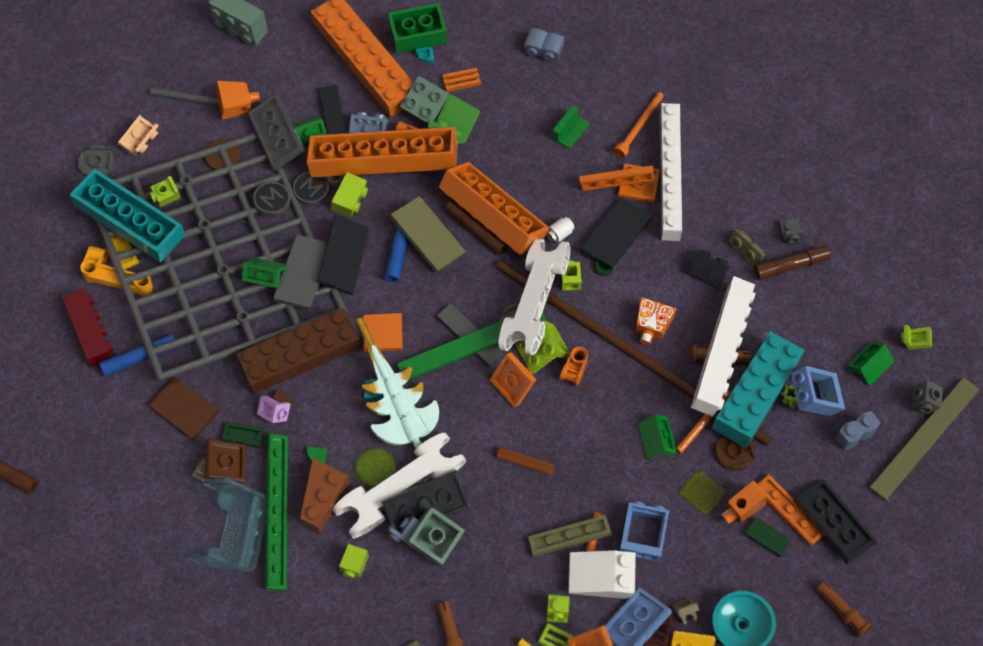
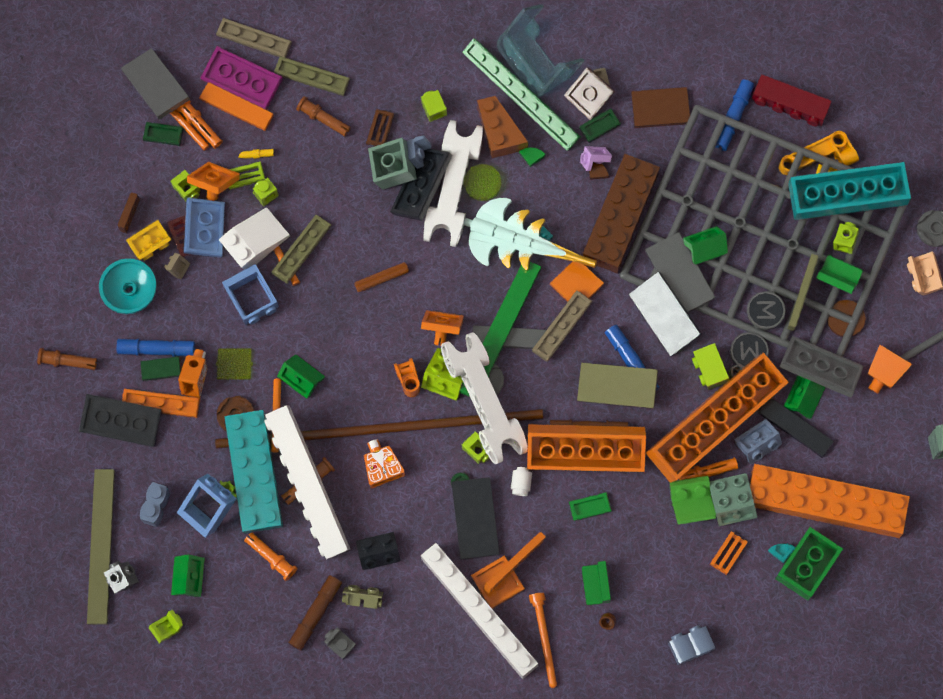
camera: 140 degrees right, 10 degrees up
(197, 175) = (840, 274): none -> green panel
(234, 185) = (803, 292): none -> olive tile
(403, 599) = (391, 116): none -> reddish brown tile
(425, 307) = (562, 326): none -> dark tan tile
(526, 179) = (590, 506): none -> green tile
(585, 101) = (605, 625): none -> reddish brown hinge
(758, 556) = (155, 347): none -> blue piece
(792, 317) = (277, 561): none -> orange pin

